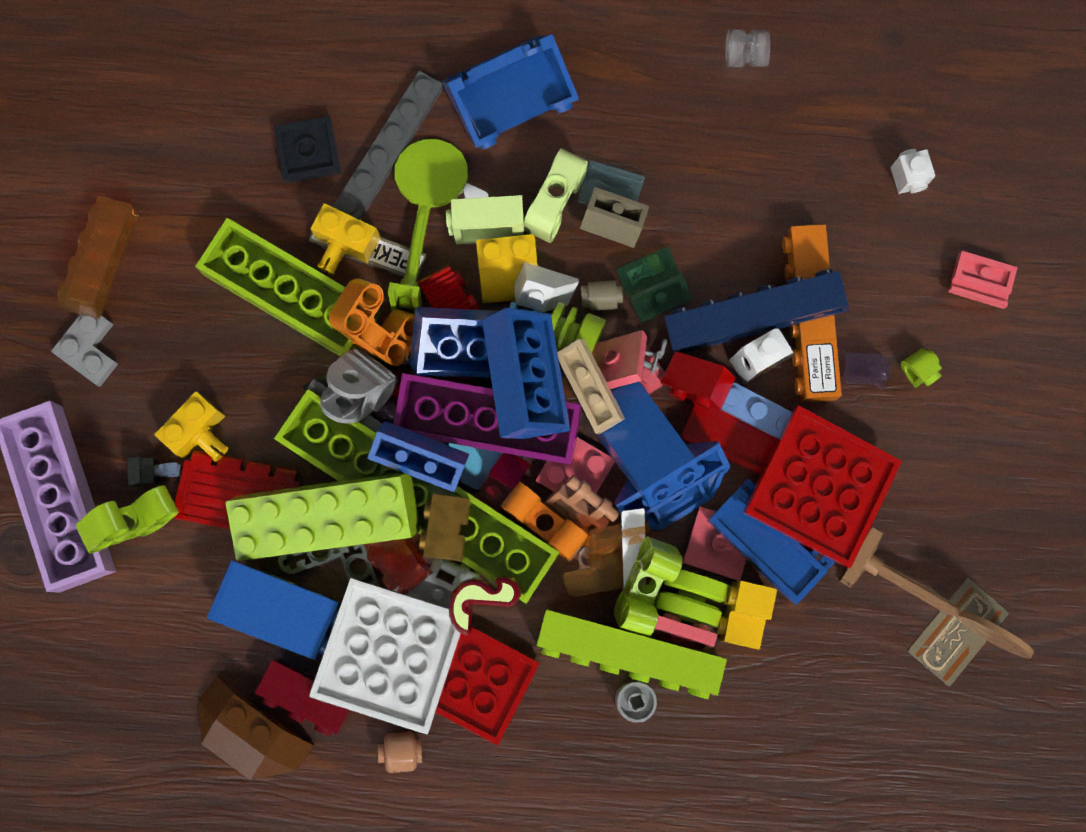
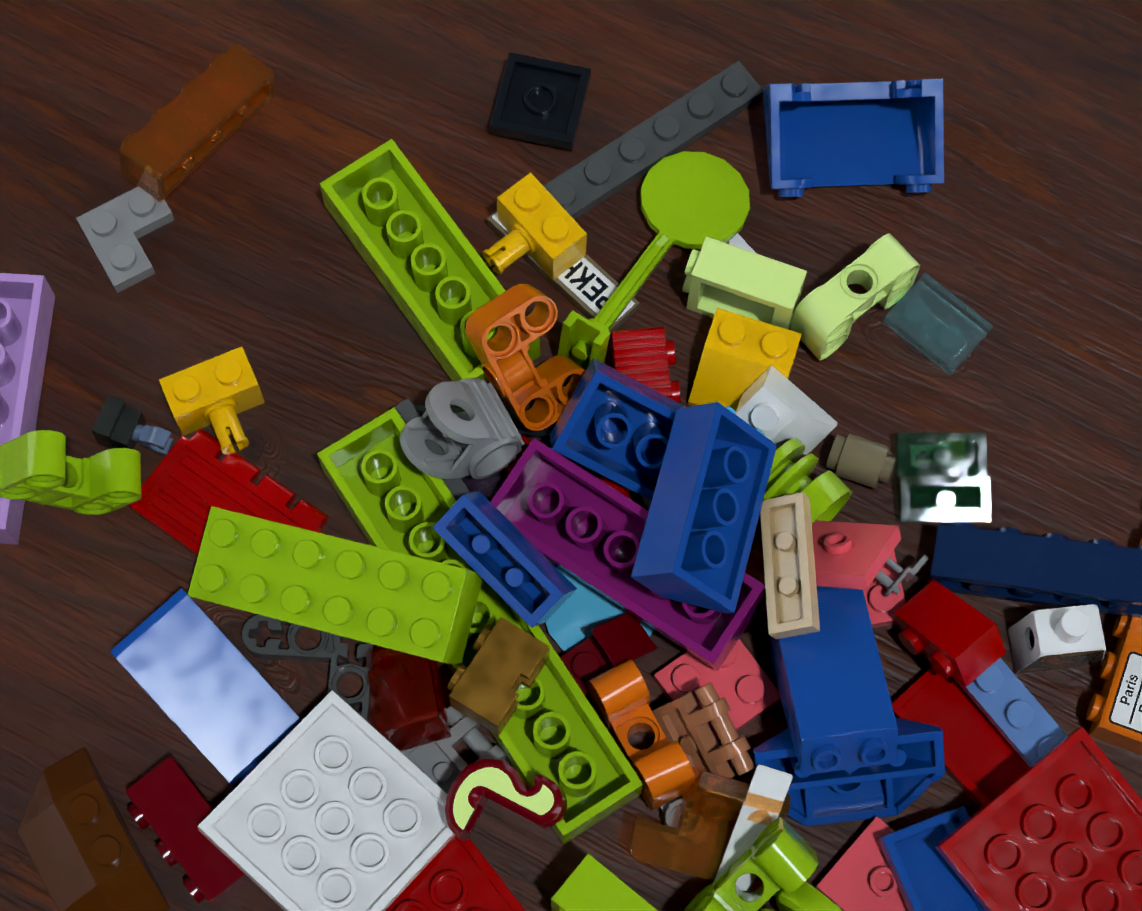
camera: 25 degrees right, 10 degrees down
(614, 217) = (925, 360): dark tan brick -> none

